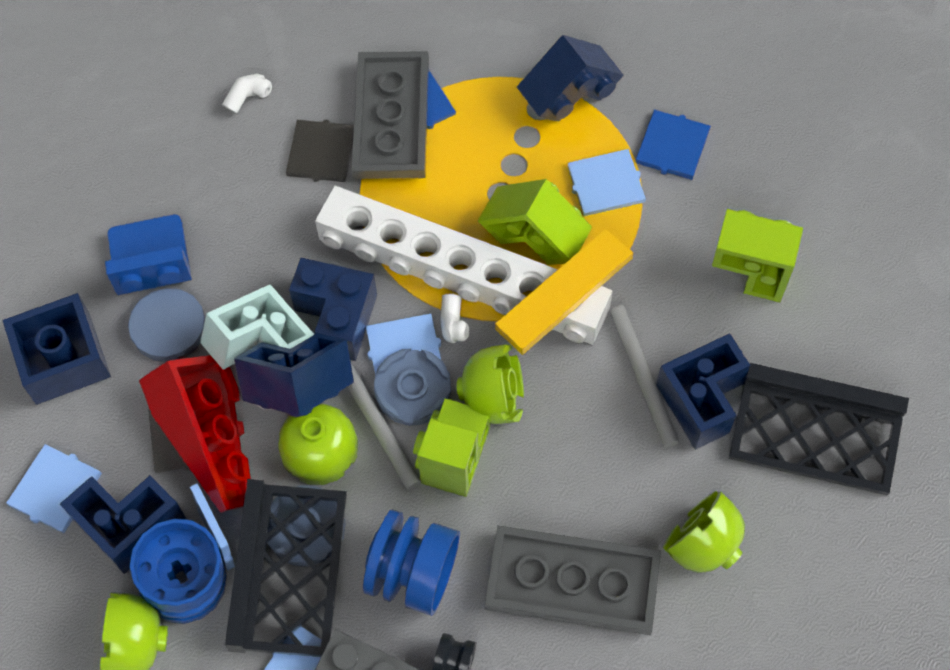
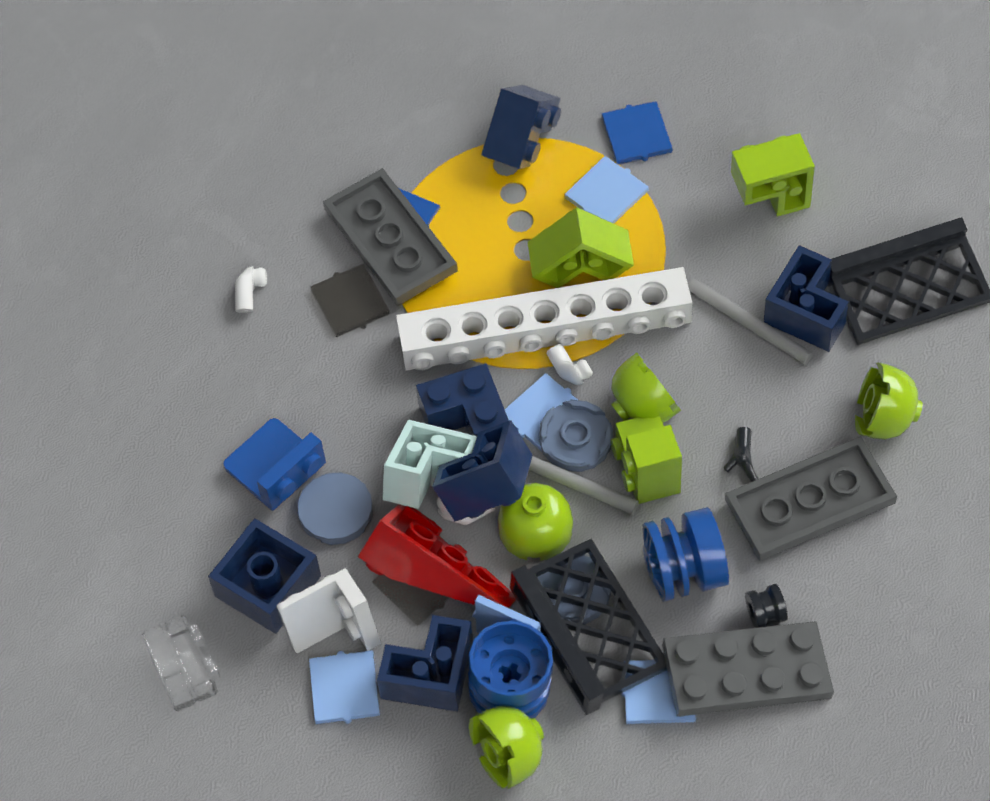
camera: 30 degrees left, 5 degrees down
(77, 410) = (326, 610): none -> white bracket
(544, 497) = (742, 453): none -> black bar
(563, 291) = (648, 288): yellow tile -> none

